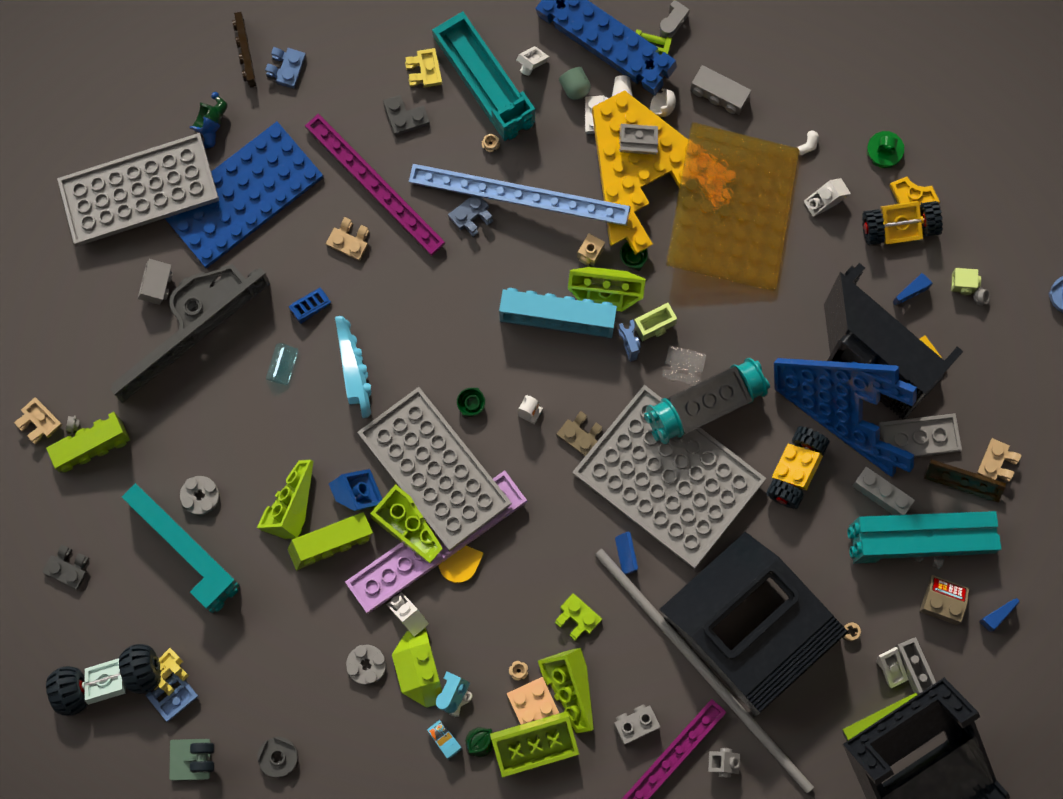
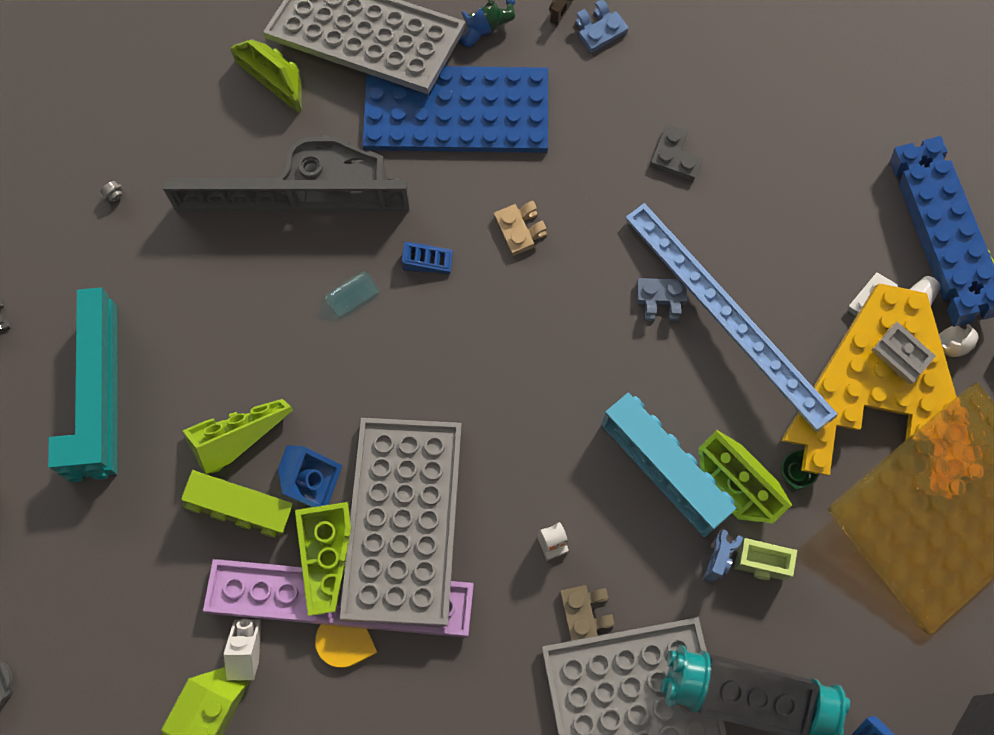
camera: 40 degrees right, 5 degrees down
(41, 418) = (90, 164): tan plate -> none
(88, 443) = (108, 220): lime wedge -> none
(101, 264) = (271, 70): none -> lime wedge
(155, 281) = (303, 121): light grey brick -> none
(190, 501) = (154, 341): light grey plate -> none
(354, 371) = (411, 352): medium azure animal -> none
(375, 185) = (590, 198): magenta plate -> none
(376, 659) = (143, 658): light grey plate -> none
(429, 68) = (737, 128): light yellow plate -> none
(470, 402) = (499, 482): dark green hat -> none
(484, 76) = (787, 177): teal brick -> none
(490, 138) = (743, 238): tan plate -> none
(531, 59) = (849, 193): white tile -> none
(575, 83) = (877, 250): sand green helmet -> none
(590, 250) = (756, 428): tan brick -> none
(685, 360) = (765, 628): clear plate -> none

